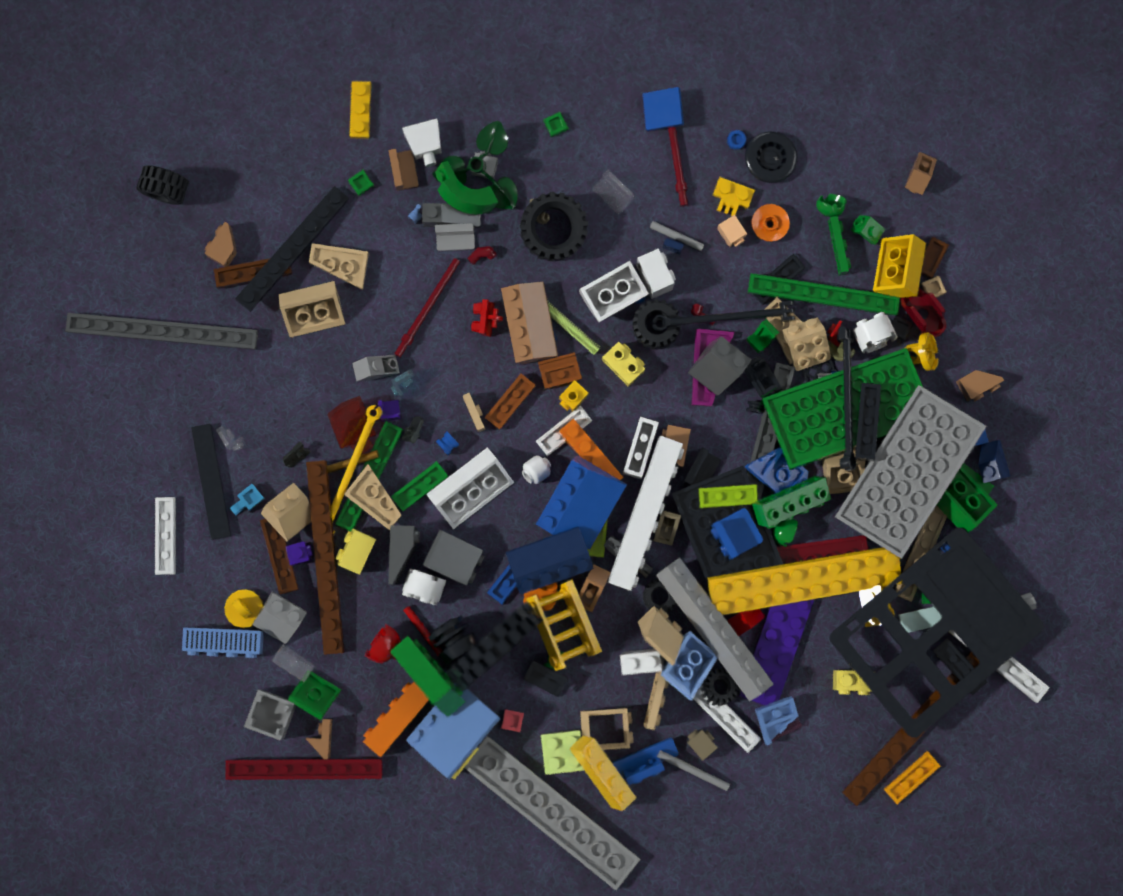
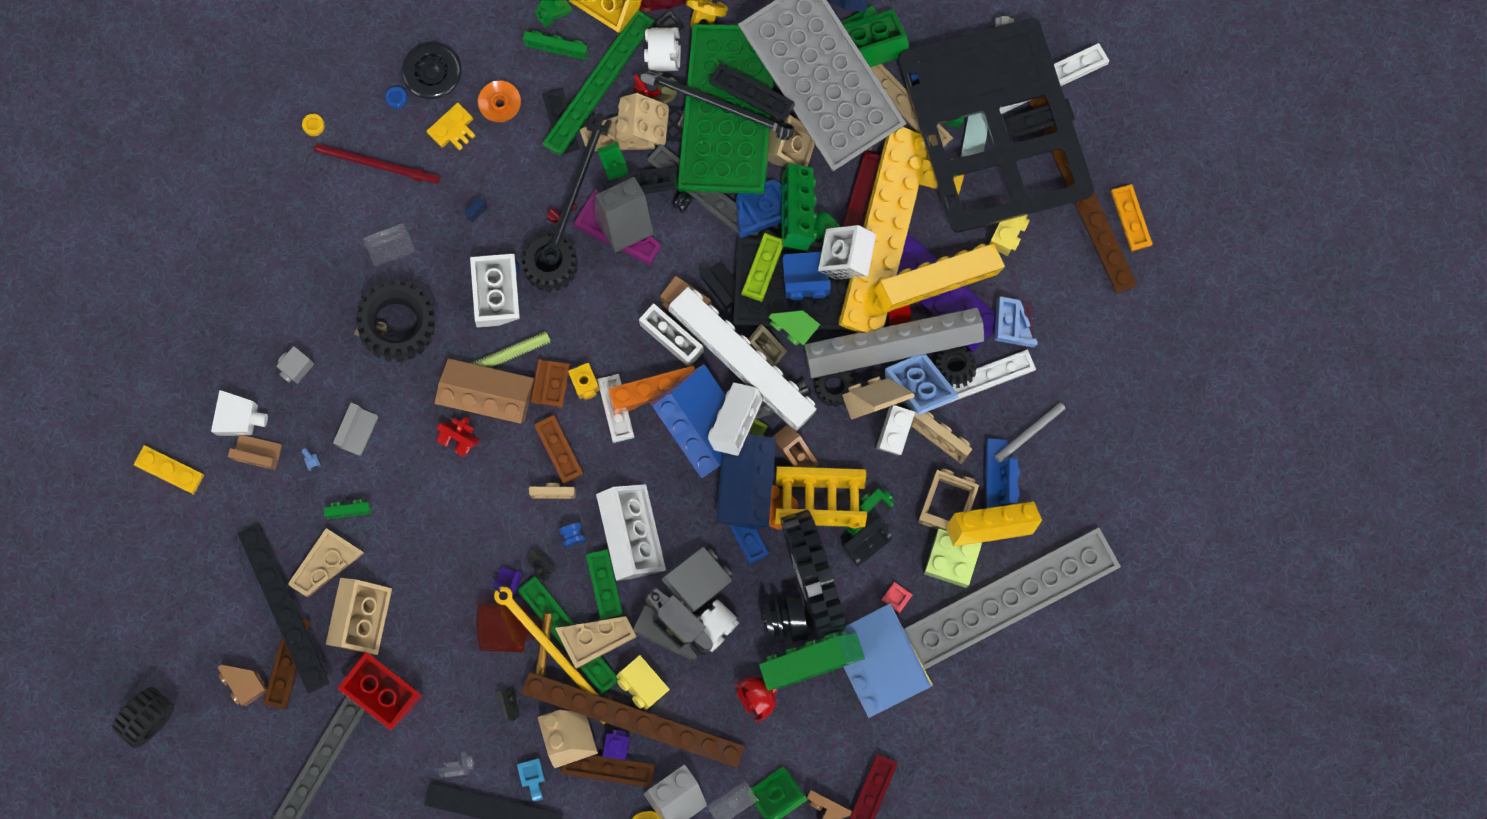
camera: 65 degrees left, 5 degrees down
(260, 353) = (379, 691): none -> red slope
(360, 182) = (248, 504): green tile -> none
(375, 367) = (455, 575): light grey slope -> none
(386, 253) = (338, 510): none -> green plate
(396, 720) = (841, 718): orange brick -> none
(402, 380) = (482, 551): clear light blue bracket -> none
(407, 339) = (440, 528): dark red bar -> none
(410, 558) = (678, 622): none -> hinge
(422, 629) = (758, 650): red bar -> none
(444, 214) = (327, 425): dark grey slope -> none
(461, 197) = (315, 402): green arch -> none
(485, 251) = (385, 410): dark red arm -> none
(493, 140) = (270, 343): dark green plant -> none
(536, 469) = (643, 454): white head -> none
(555, 124) = (287, 272): green tile -> none
(579, 666) = (870, 501): none -> green bracket
(593, 529) = (735, 418): none -> white brick
(623, 363) = (574, 314): light yellow brick -> none
(655, 273) = (495, 237): white brick -> none
(663, 109) = (327, 155): blue tile -> none
(677, 236) = (466, 202): light grey bar -> none
(685, 84) = (313, 125): none -> yellow tile
(693, 544) = (796, 324): none -> bright green slope
(701, 743) = (1006, 411): dark tan brick -> none
(732, 231) = (489, 143): light nougat brick -> none
(768, 558) = (847, 252): none -> white brick
(785, 641) = (938, 277): none -> yellow brick
(832, 205) = (511, 33): green hair -> none

